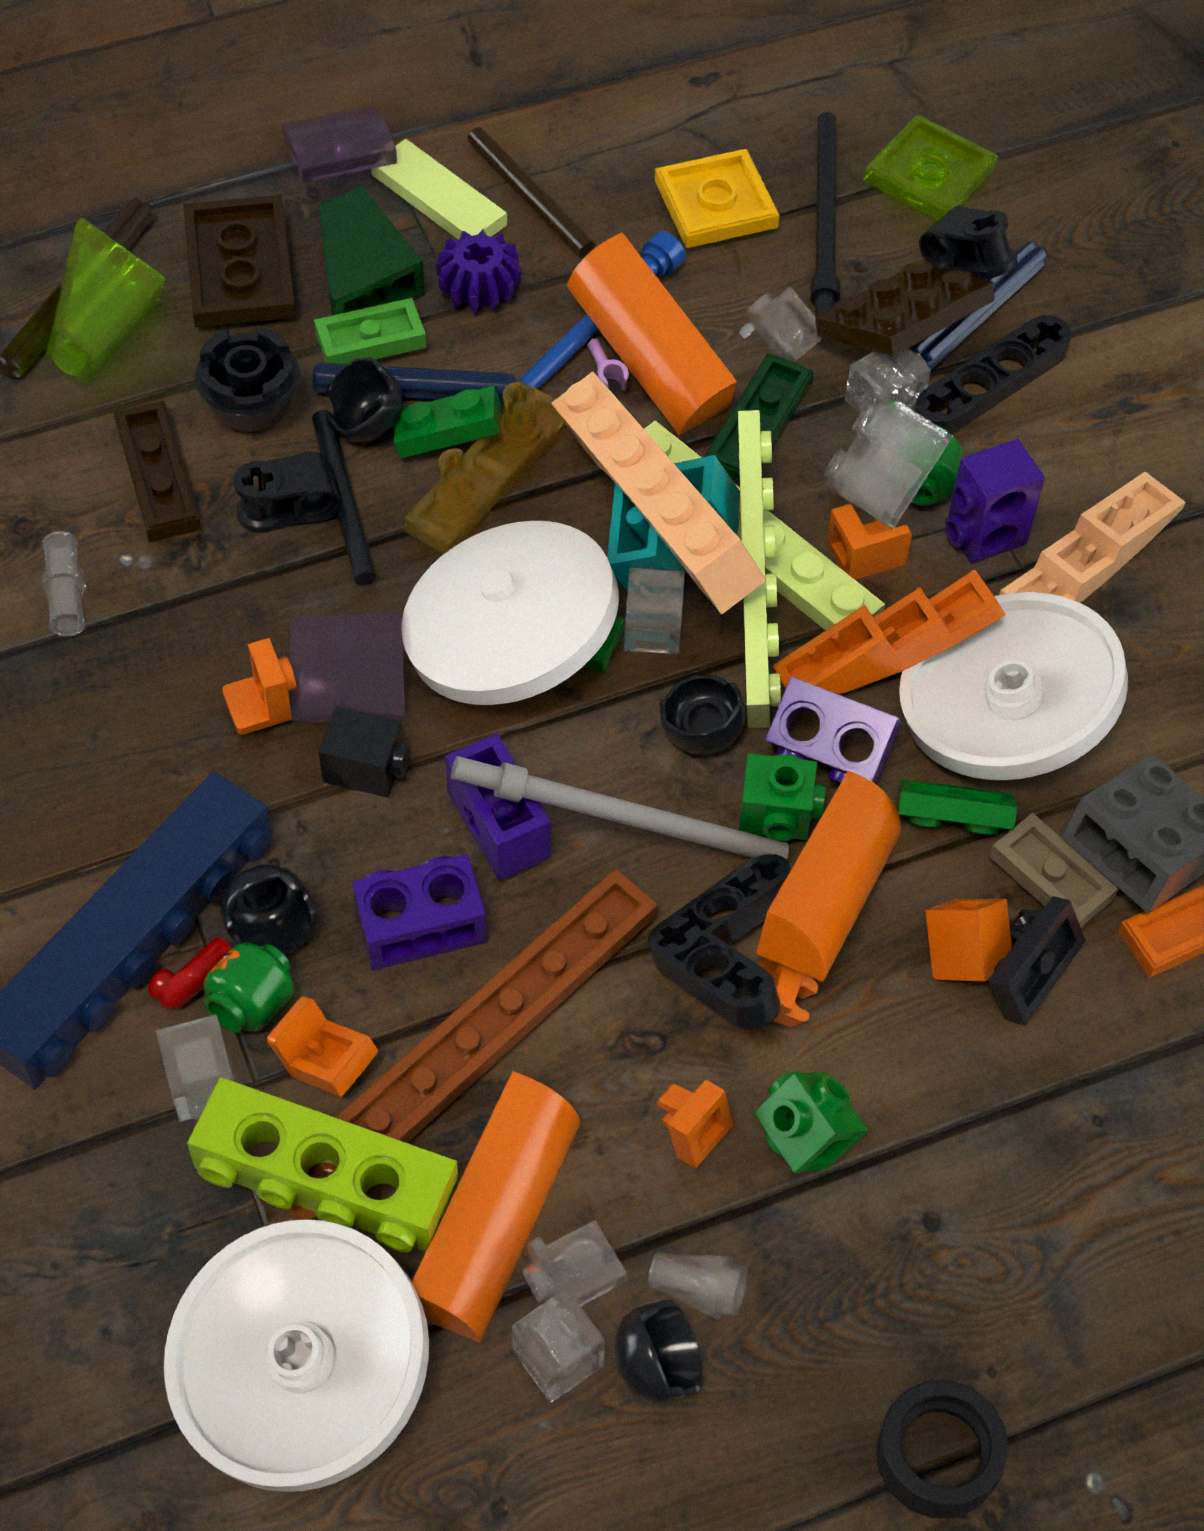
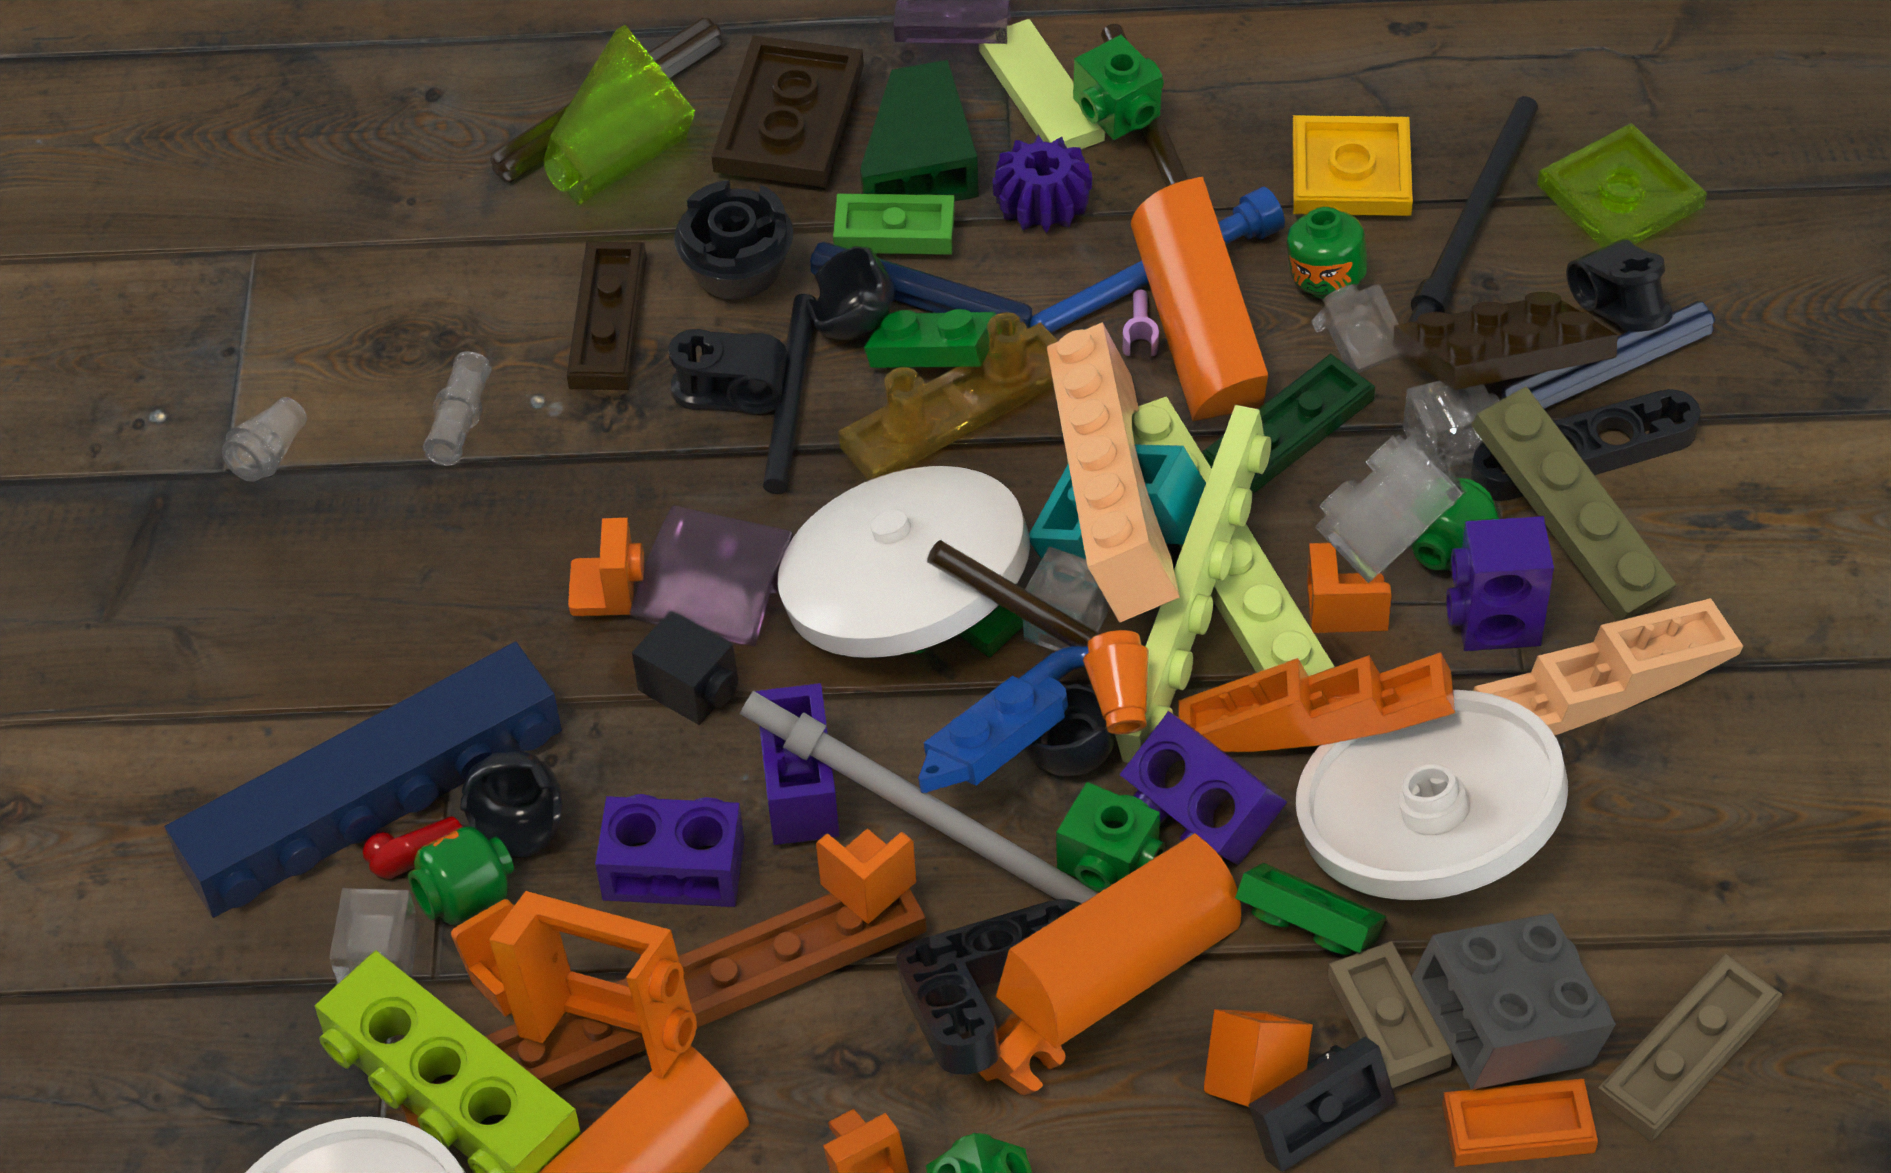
camera: 25 degrees right, 5 degrees down
(376, 1060) = (544, 987): none -> orange panel
(511, 177) = (1117, 87): none -> green brick
(599, 881) = (867, 871): none -> orange panel
(648, 624) = (1009, 595): none -> dark brown bar
(660, 720) = (1000, 724): none -> blue plate
(734, 272) = (1326, 251): none -> green head
(741, 661) = (1119, 678): none -> orange cone
(1005, 416) = (1573, 504): none -> olive plate

